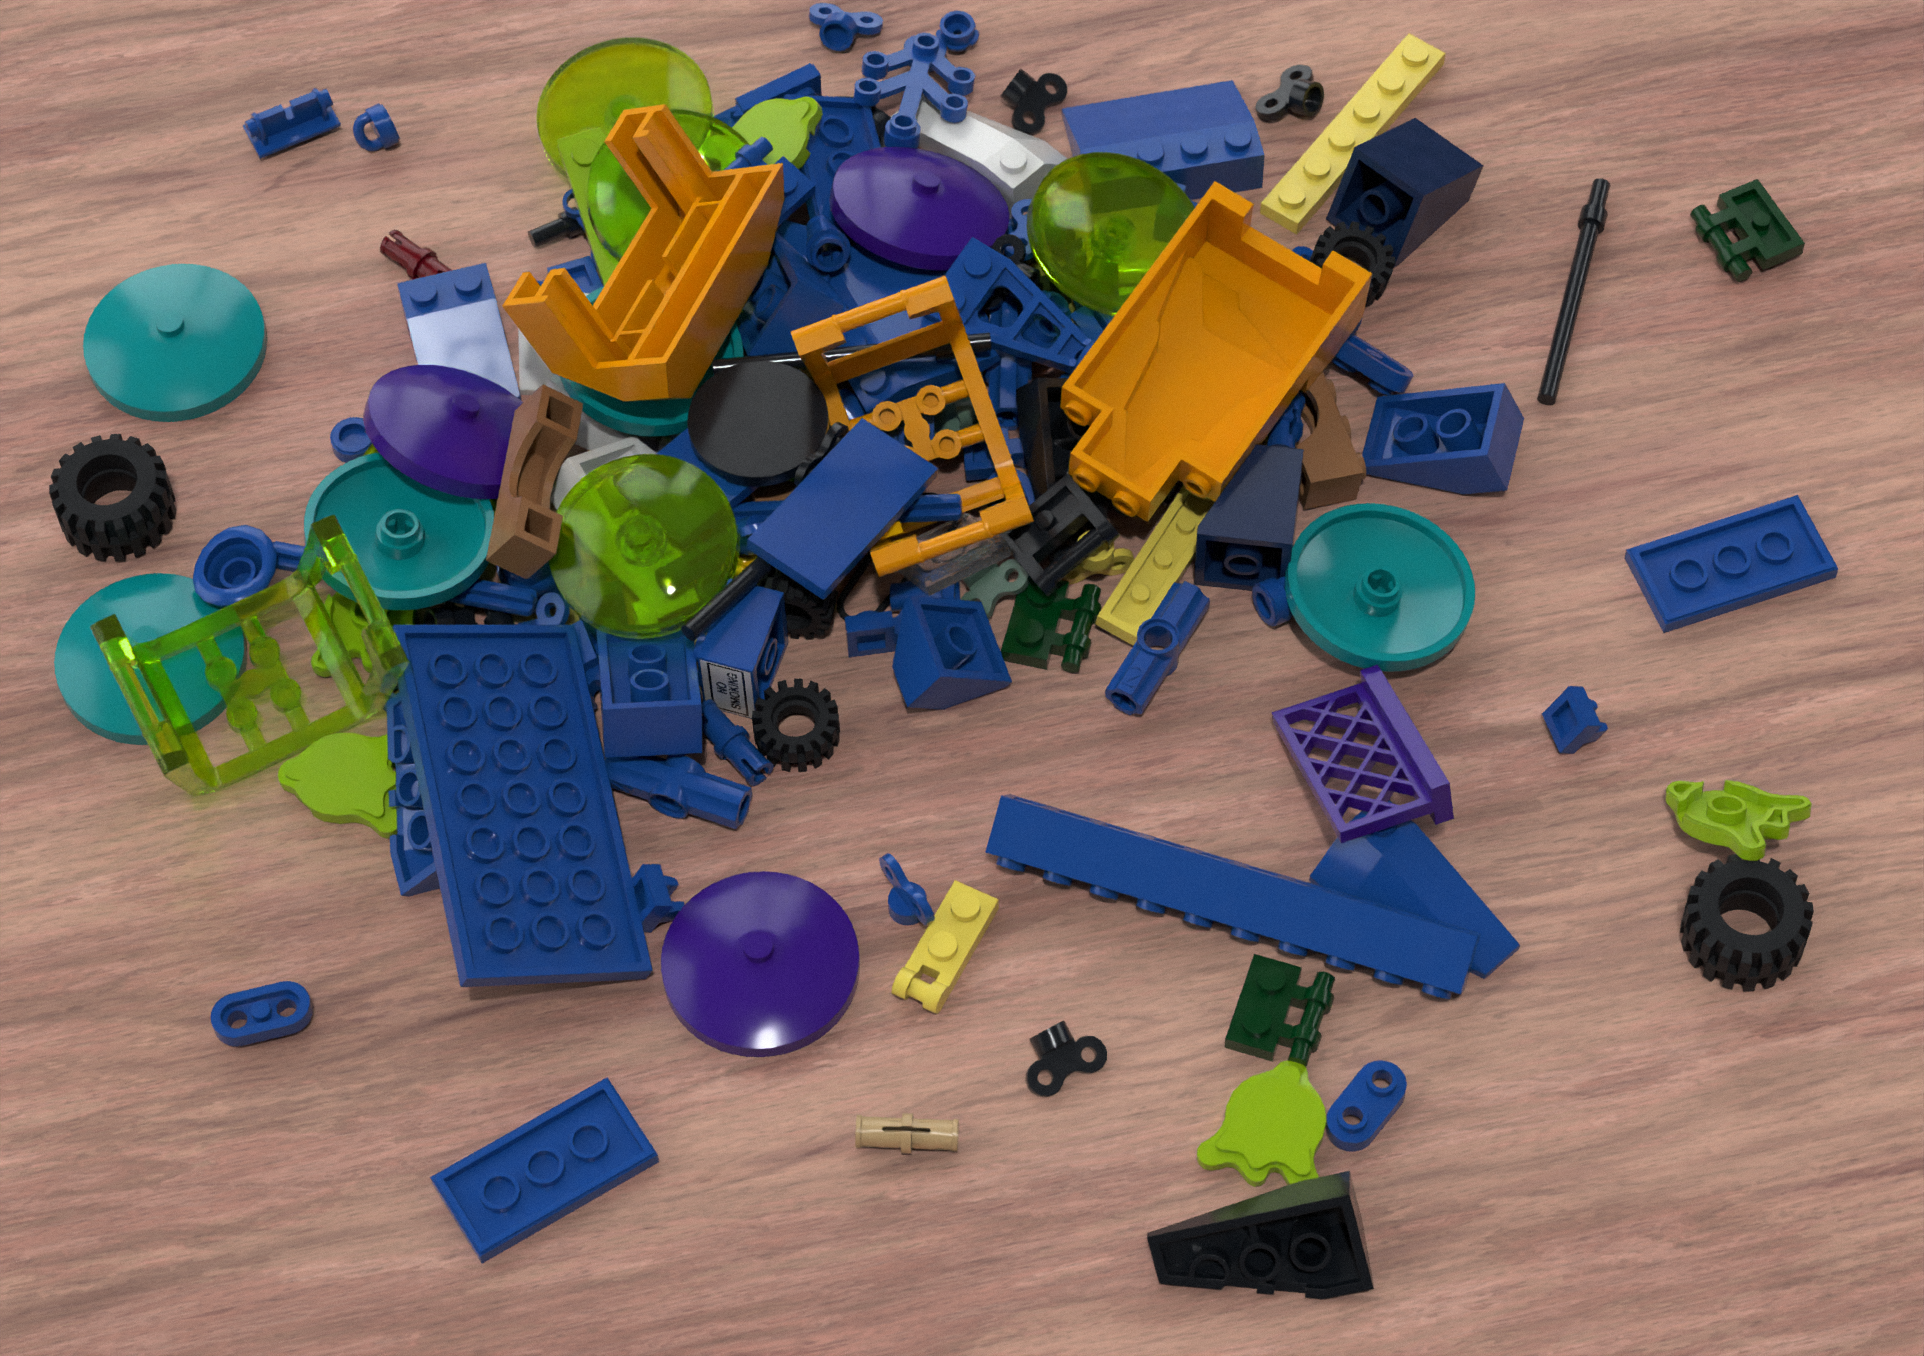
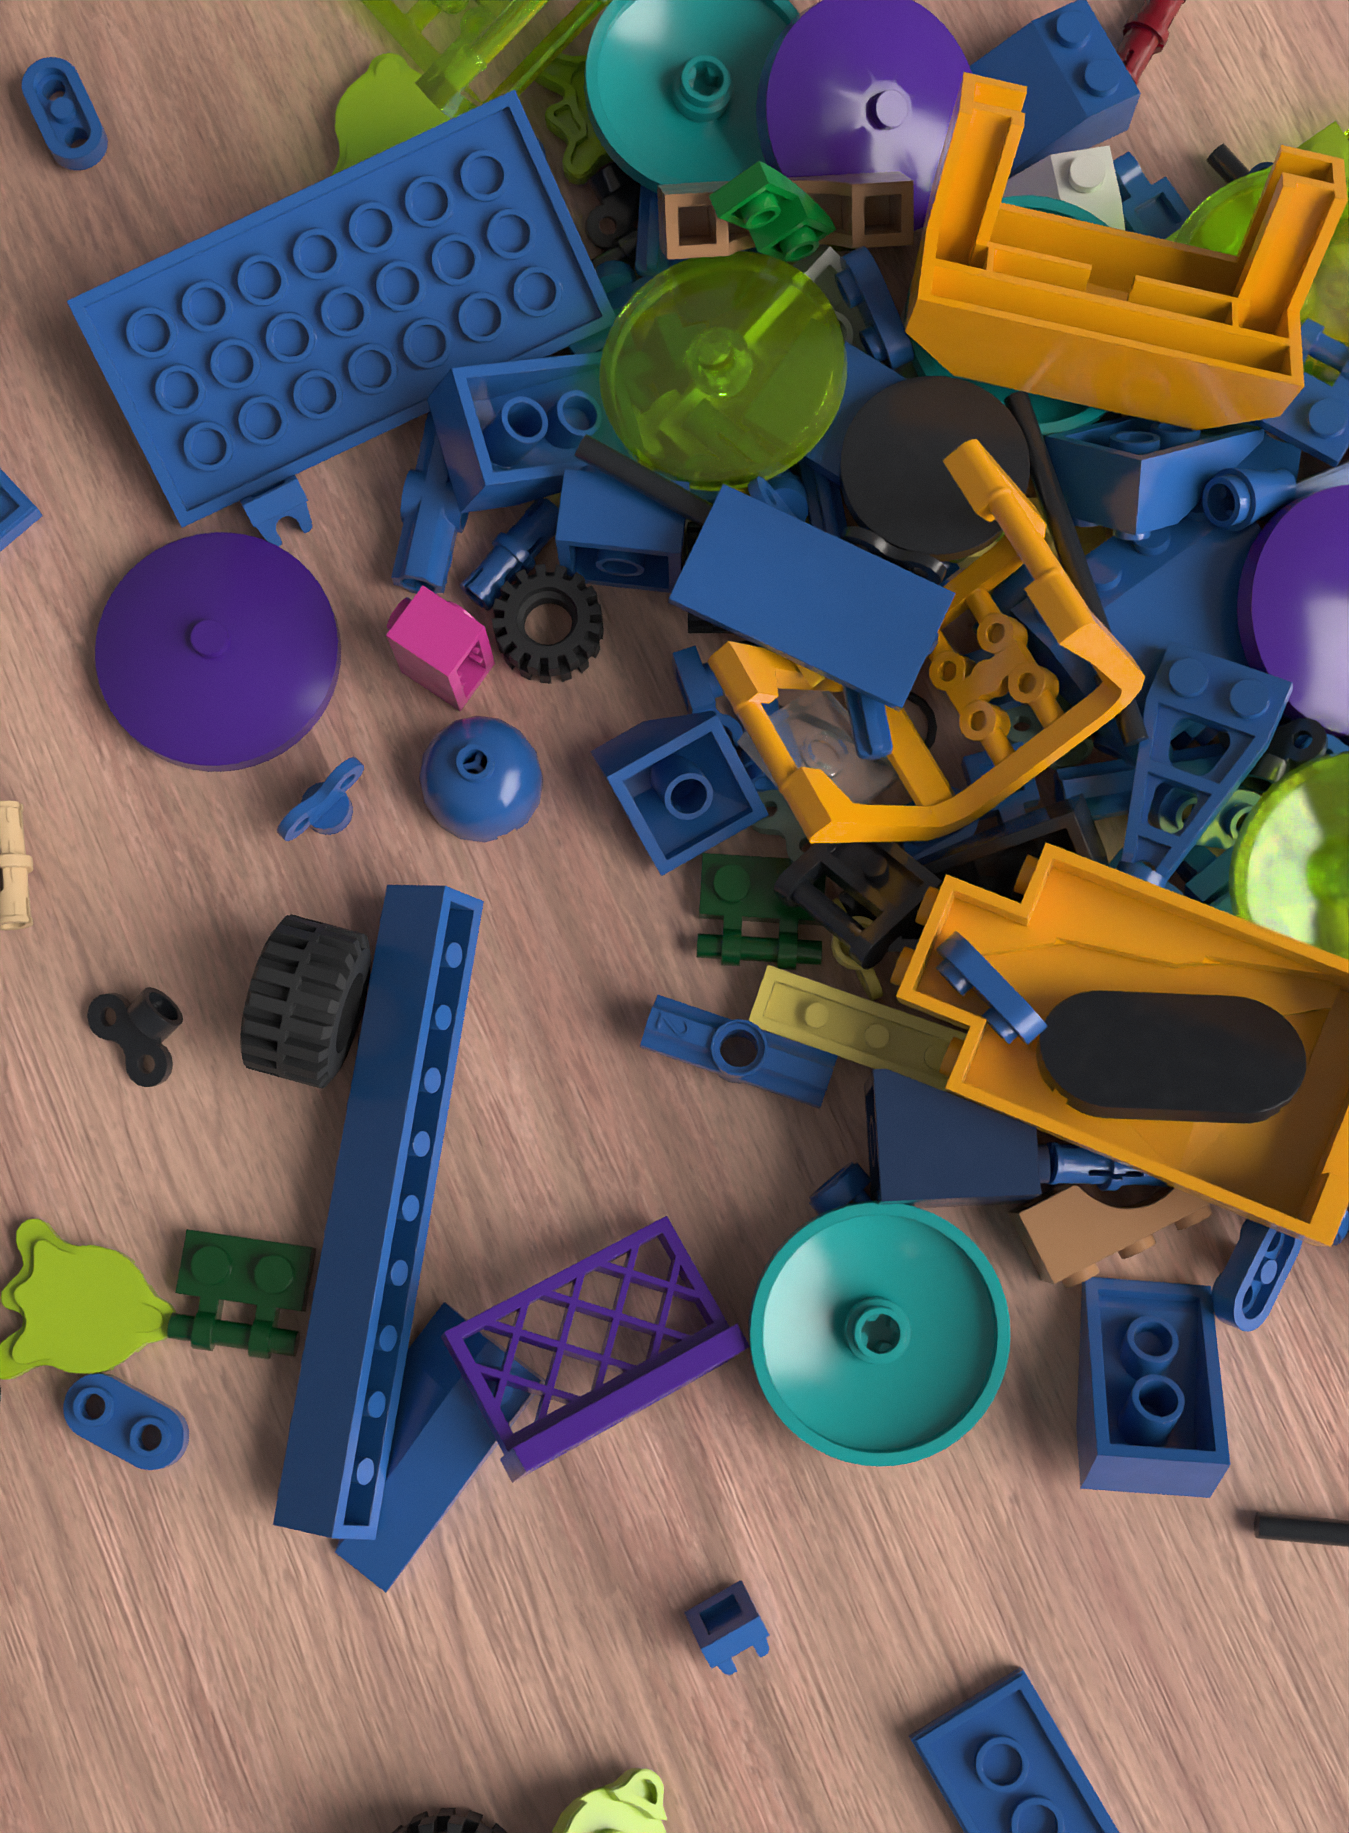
camera: 80 degrees right, 20 degrees up
(546, 474) = (775, 212): none -> green slope
(617, 438) = (865, 287): none -> blue plate
(807, 785) = (440, 646): none -> dark pink brick
(908, 790) = (487, 802): none -> blue cylinder
(946, 946) = (273, 867): light yellow plate -> none
(1069, 907) = (305, 1001): none -> black tyre
(1142, 454) = (1007, 1012): none -> blue plate
(1222, 353) = (1171, 1057): none -> black tile

